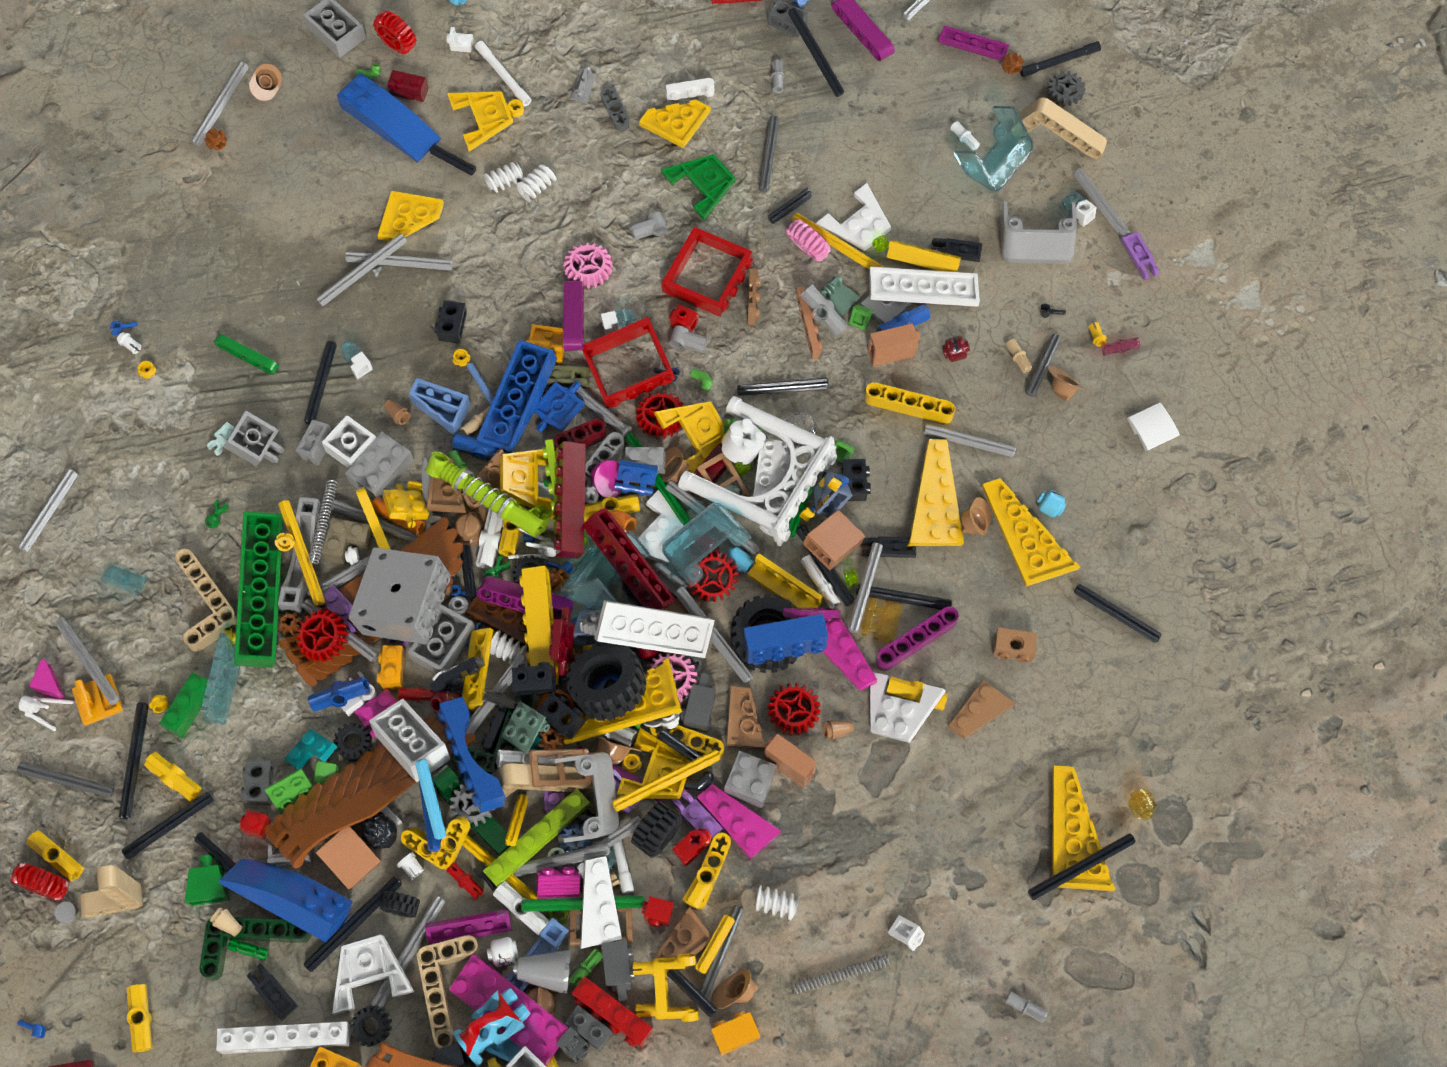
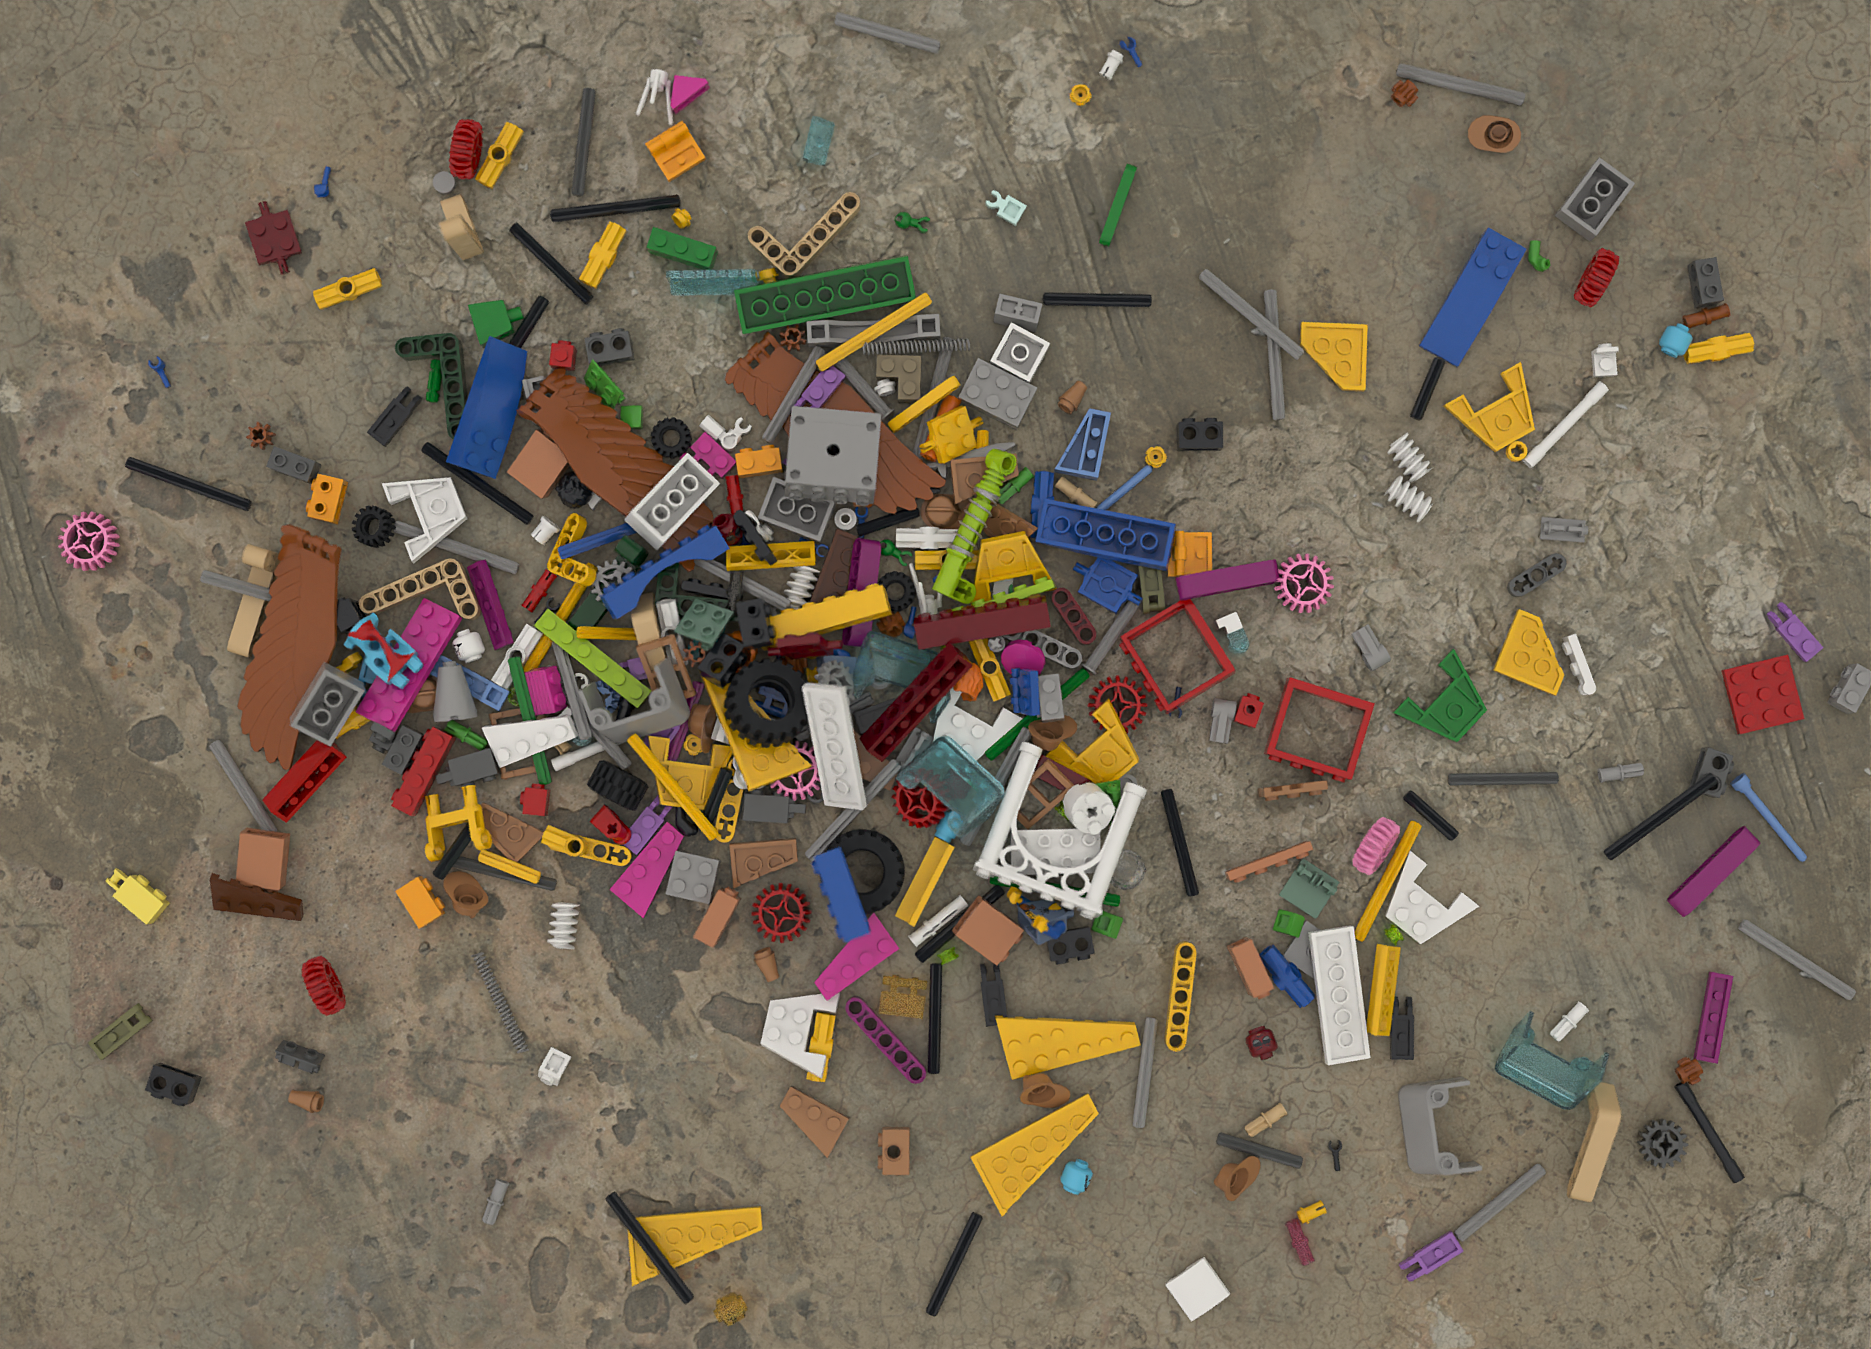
camera: 80 degrees right, 20 degrees up
(87, 661) = (715, 128): light grey axle -> none
(225, 921) = (450, 353): tan cone -> none
(262, 435) = (1007, 253): light grey hinge -> none
(283, 1037) = (349, 440): white brick -> none
(284, 546) = (879, 311): yellow plate -> none
(310, 744) = (658, 392): teal plate -> none
(323, 620) = (779, 393): red gear -> none
(339, 694) = (718, 411): blue piece -> none
(355, 356) = (1137, 331): leg -> none
(399, 904) = (499, 528): black tyre -> none
(408, 86) = (1523, 311): dark red brick -> none
(430, 799) = (604, 539): medium azure axle -> none
(703, 377) = (1175, 748): bright green arm -> none
(796, 613) = (885, 918): magenta plate -> none
(830, 317) = (1284, 877): light grey piece -> none
(865, 587) = (935, 973): light grey axle -> none
(1084, 209) = (1483, 1181): white leg -> none

